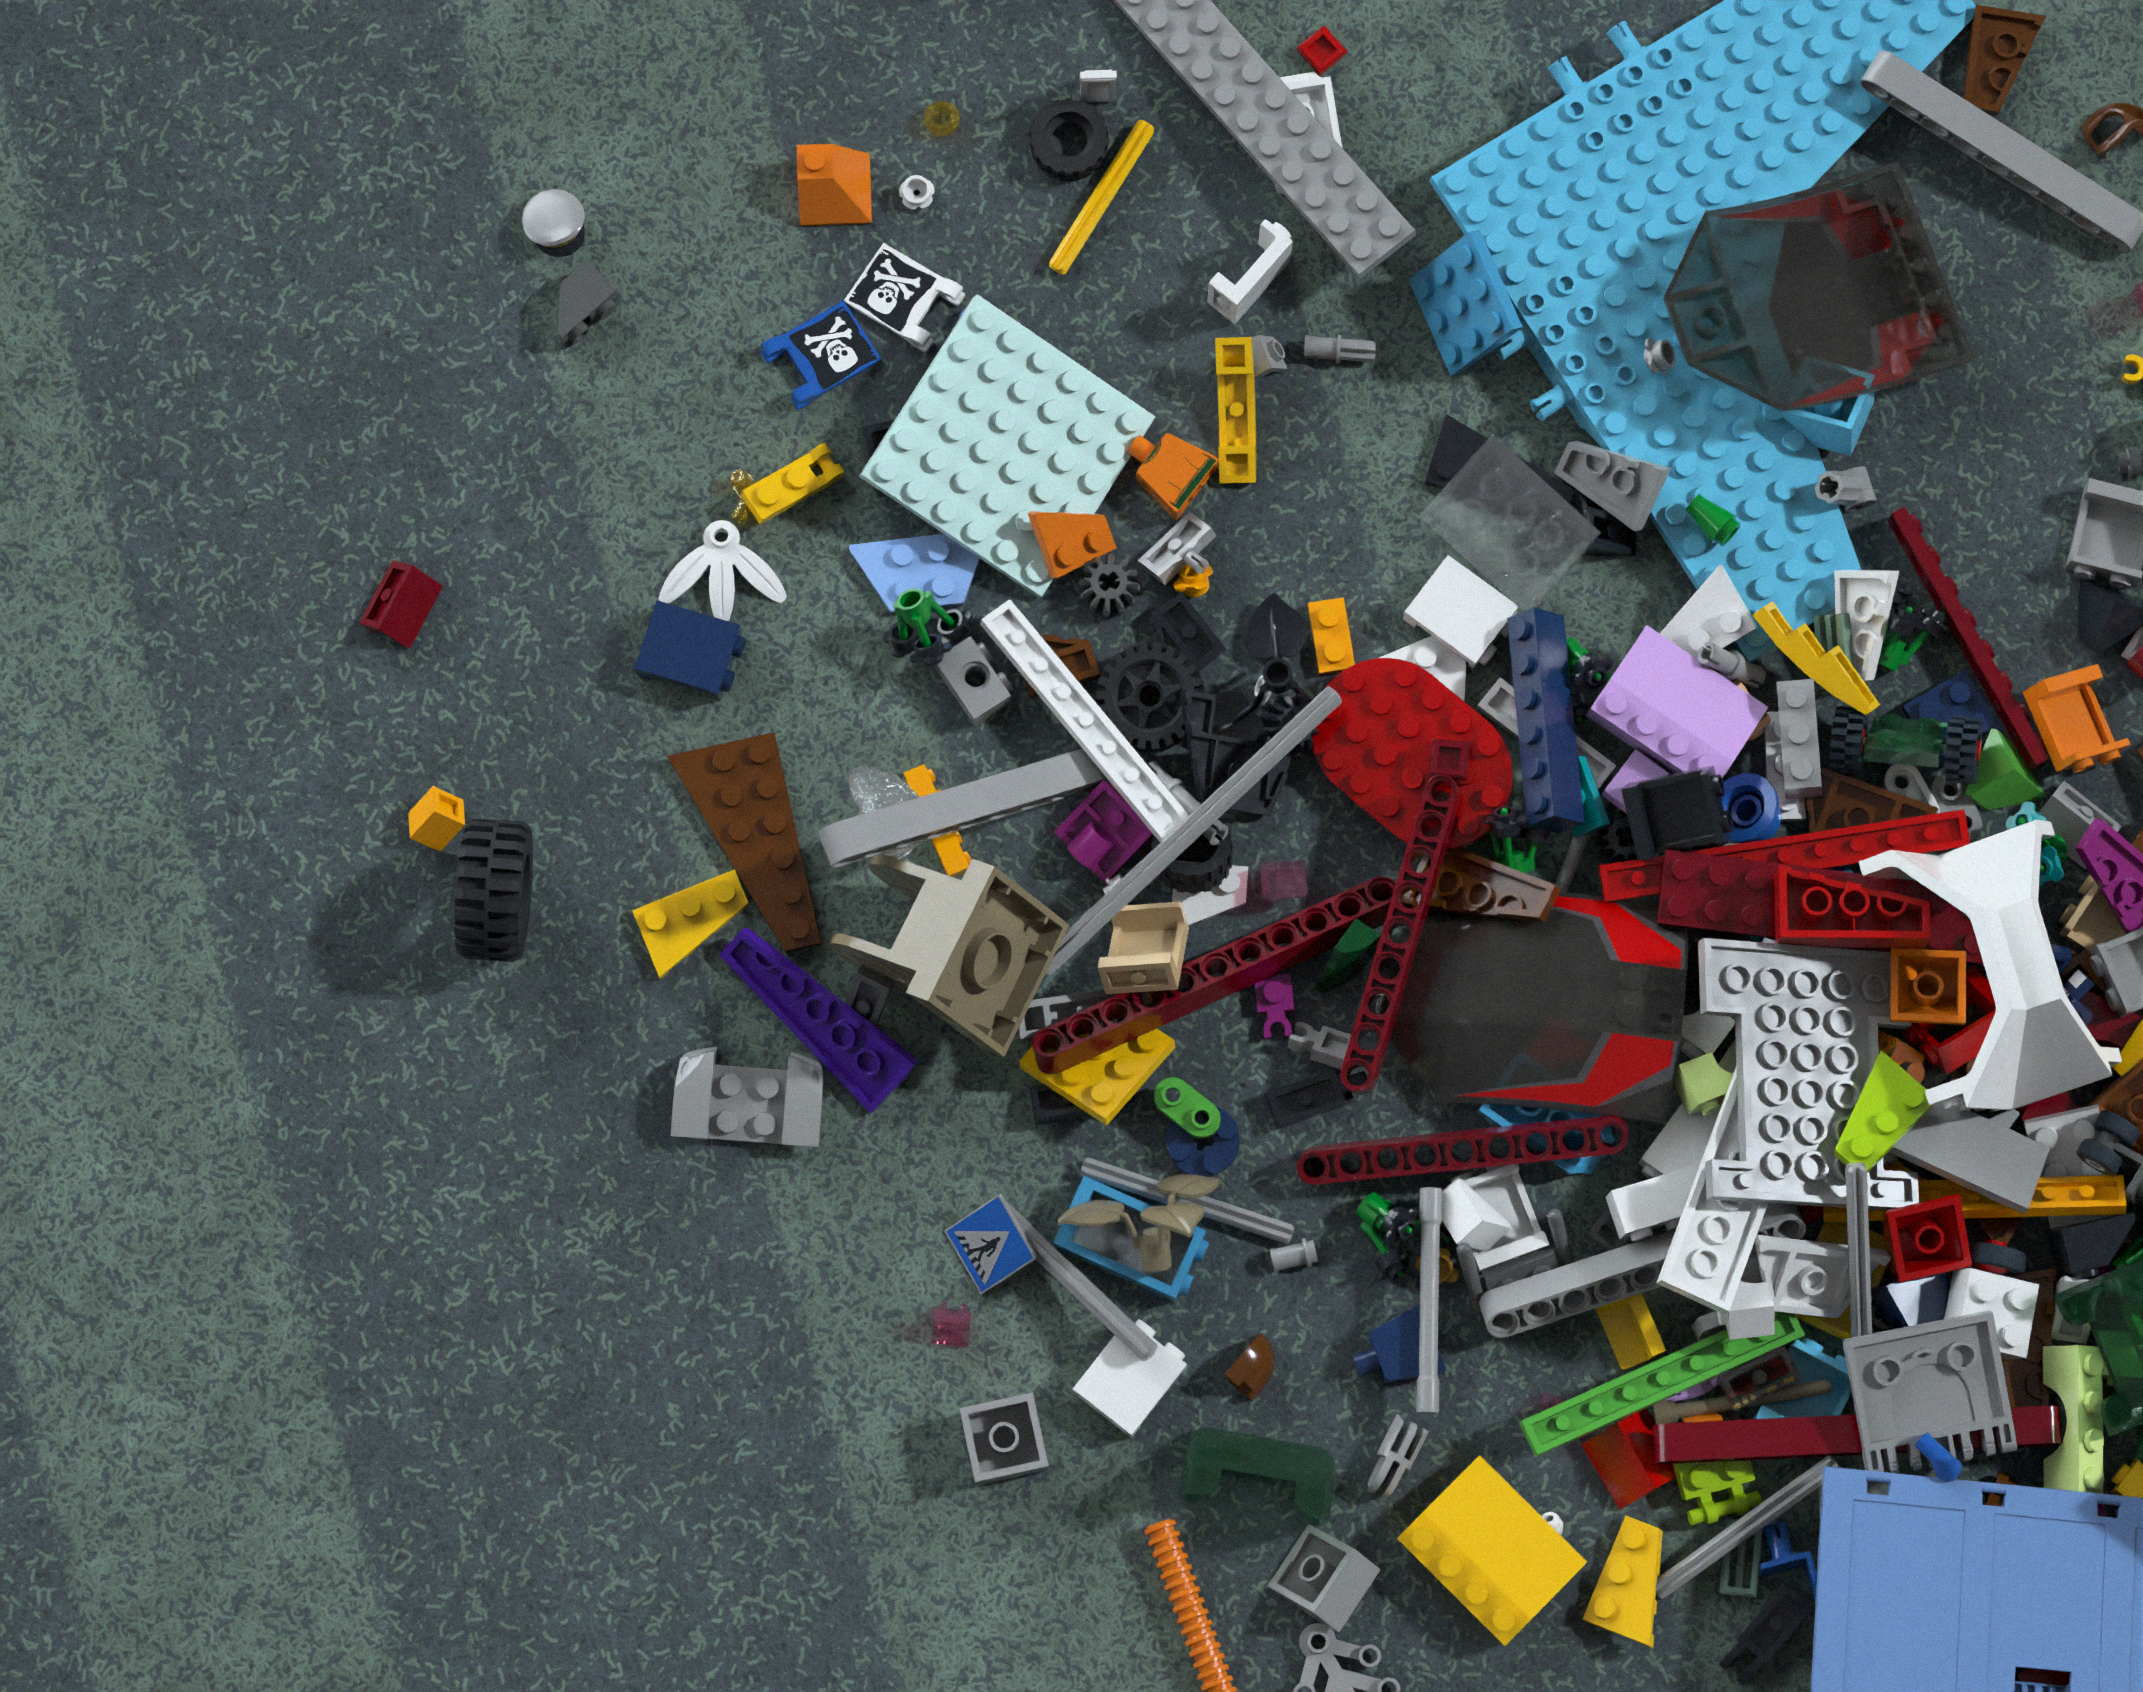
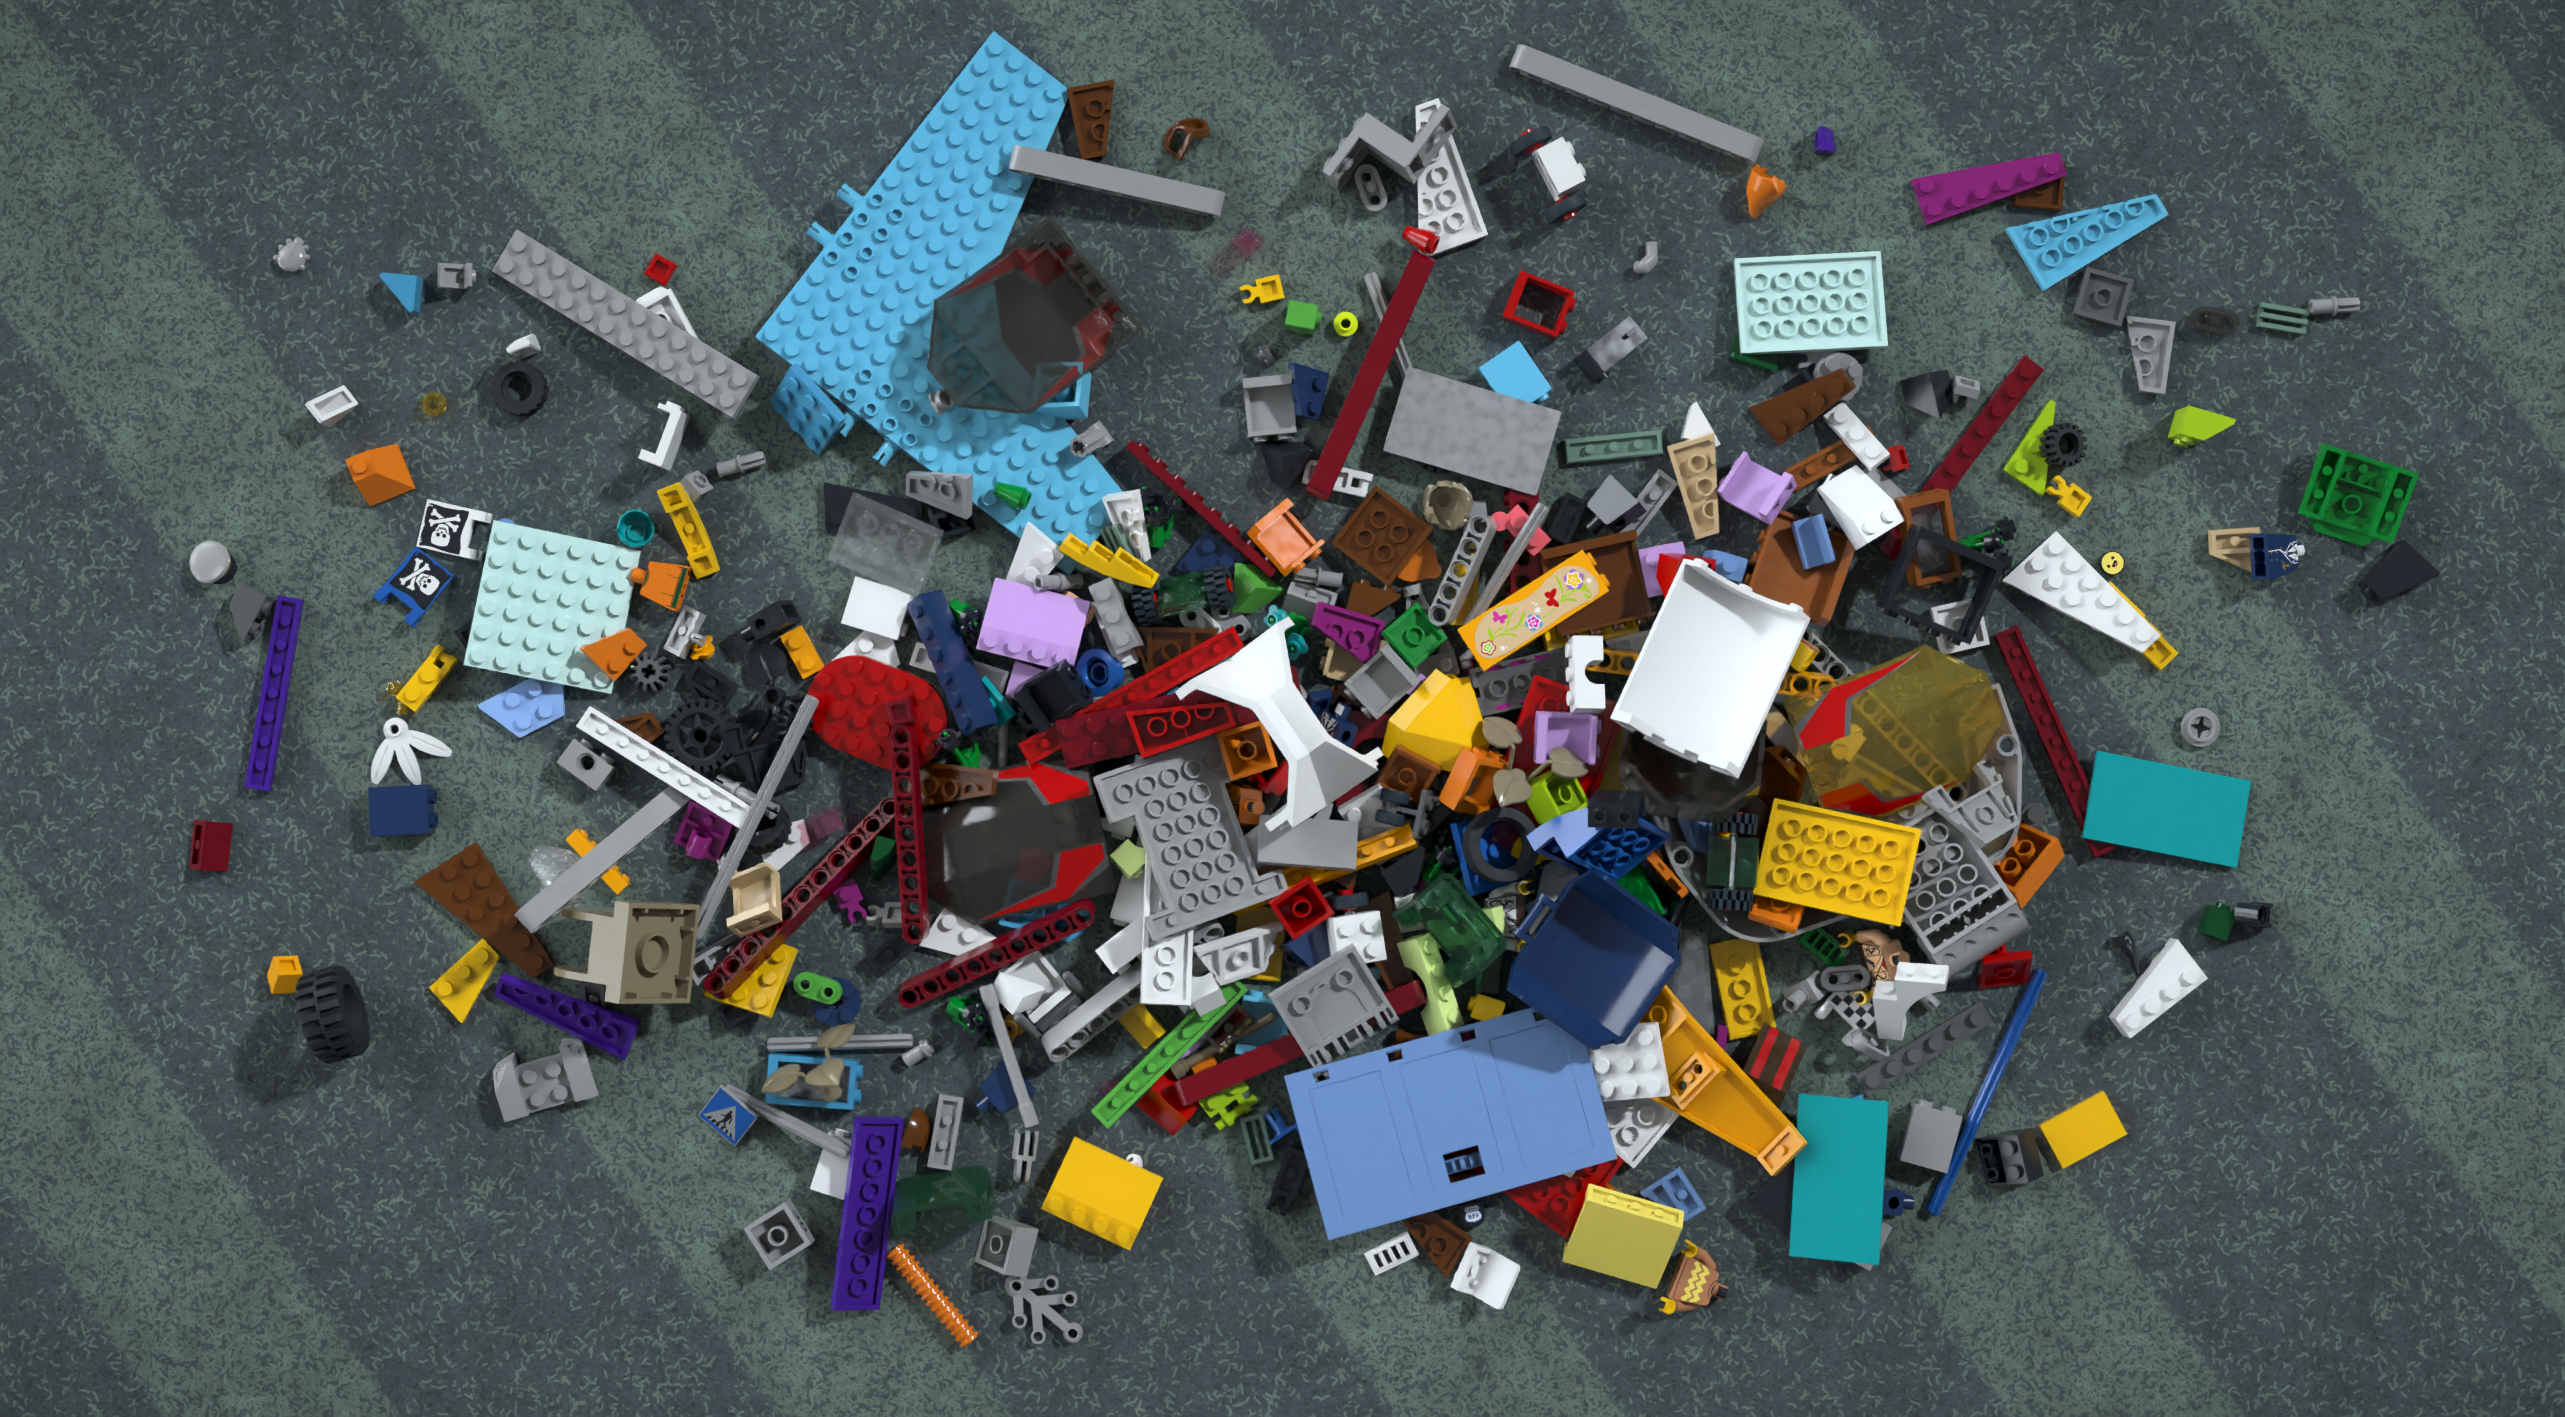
camera: 20 degrees left, 10 degrees up
(571, 428) = (274, 693): none -> dark purple plate
(802, 71) = (332, 406): none -> white slope
(913, 612) = (533, 750): plant -> none
(914, 183) = (435, 452): white plate -> none
(951, 1326) = (722, 1175): clear pink tile -> none
(1101, 197) = (555, 418): yellow axle -> none
(1143, 1453) = (867, 1212): none -> dark purple plate
(1160, 370) = (629, 530): none -> teal hair
(1293, 1382) = (945, 1132): none -> light grey plate
(1319, 576) = (771, 621): none -> black torso
(1407, 1108) = (956, 935): none -> white wing
(1627, 1585) = (1192, 1181): yellow wing -> none
(1743, 1528) = (1251, 1123): light grey axle -> none
(1858, 1249) = (1261, 933): light grey axle -> none
(1883, 1114) = (1244, 845): lime wing -> none
(1944, 1464) = (1358, 1048): blue arm -> none
(2102, 792) = (1319, 577): none -> light grey axle

